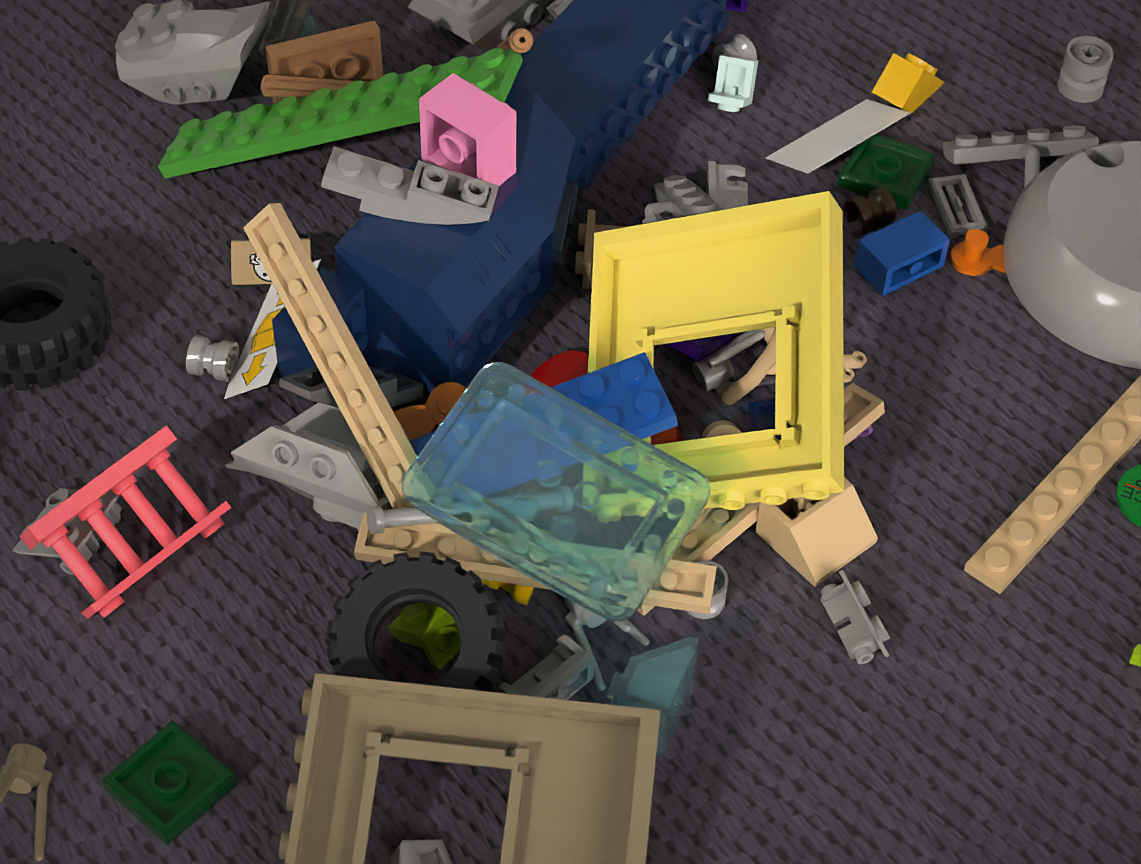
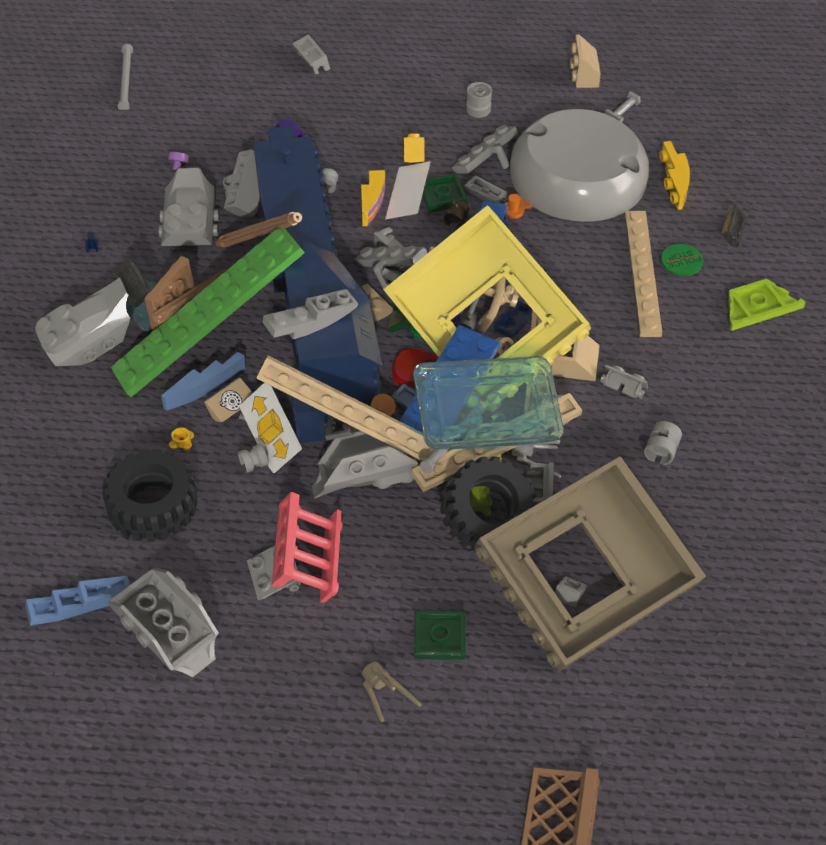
camera: 40 degrees left, 0 degrees up
(161, 271) = (181, 433): none -> yellow plate
(233, 210) = (200, 384): none -> medium blue slope
(468, 131) = (313, 272): bright pink brick -> none
(658, 681) = (592, 454): clear light blue slope -> none
(734, 83) = (342, 193): light aqua bracket -> none
(773, 113) = (372, 195): none -> yellow slope
(809, 751) = (663, 442): none -> light grey wheel

